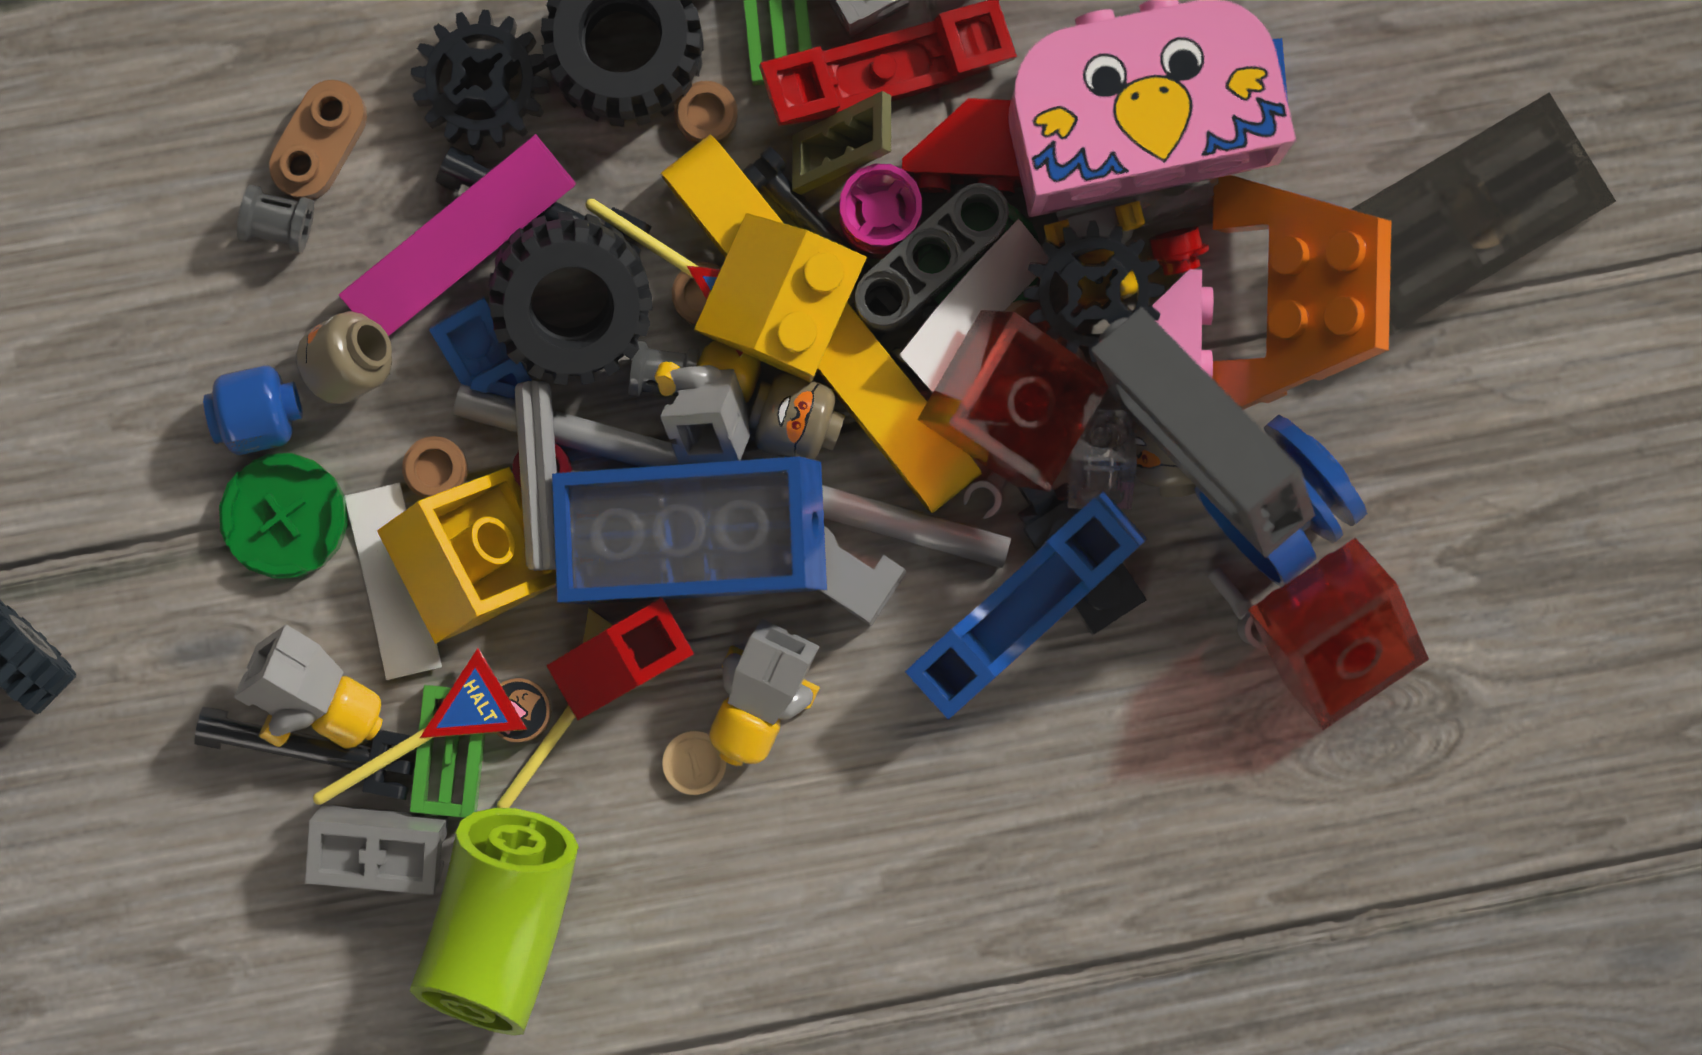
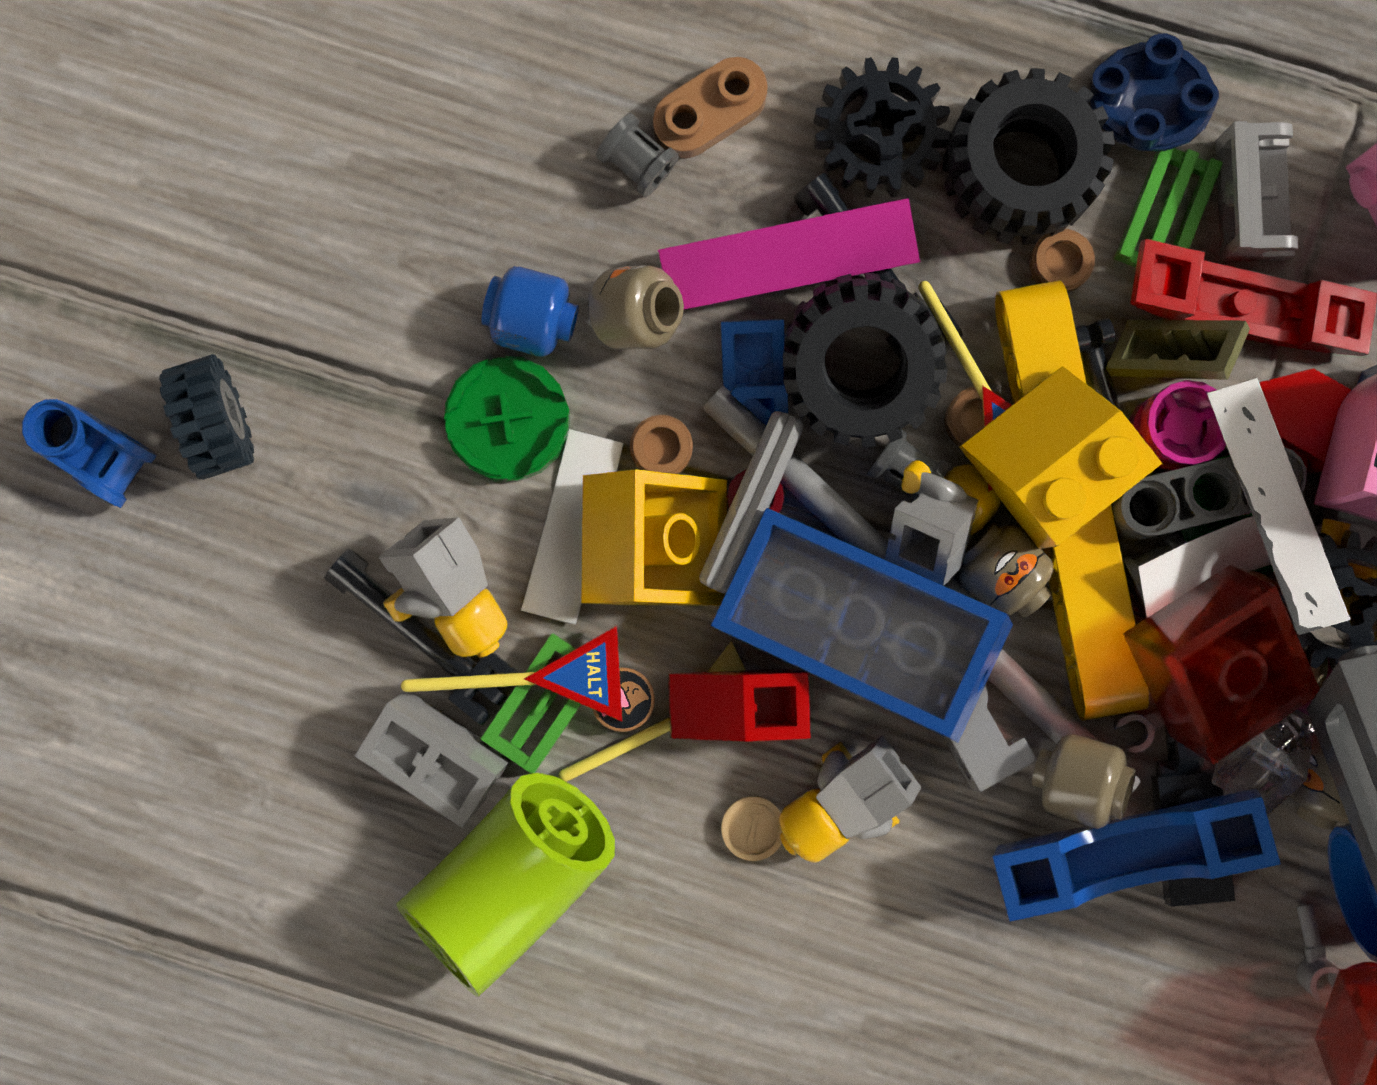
camera: 30 degrees right, 0 degrees up
(953, 564) = (1084, 781): none -> dark tan head
(988, 239) = (1278, 507): none -> white sticker

